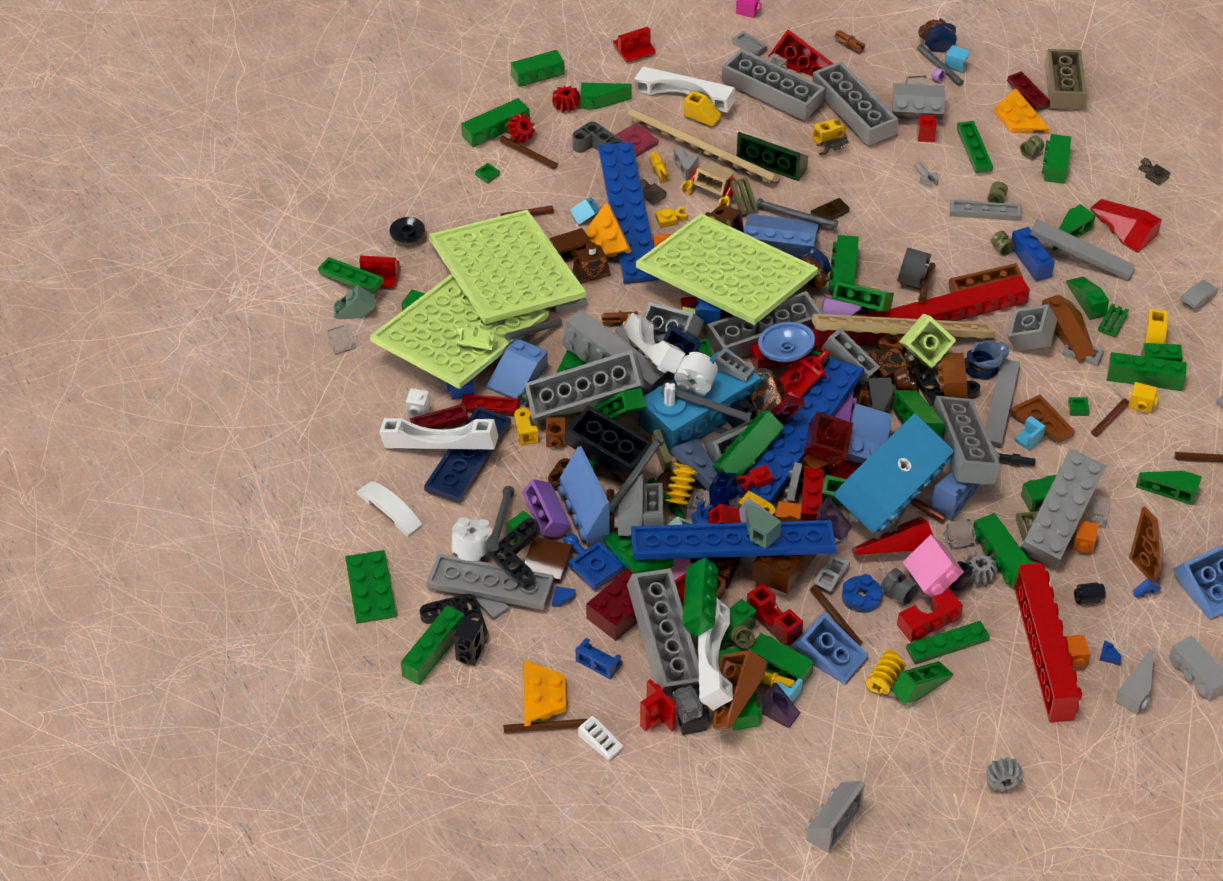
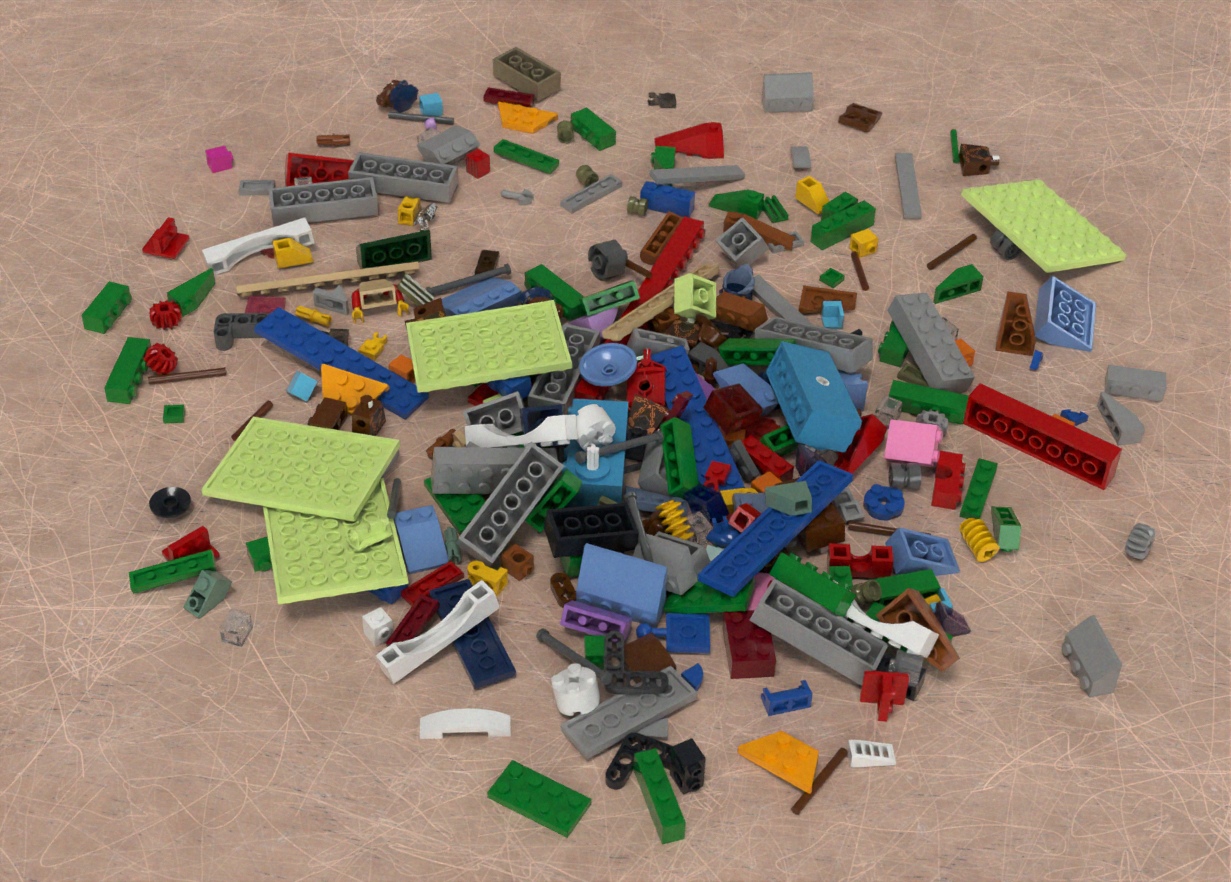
camera: 50 degrees left, 5 degrees down
(726, 358) = (602, 401): light grey slope -> none
(1089, 593) = (1013, 386): black brick -> none

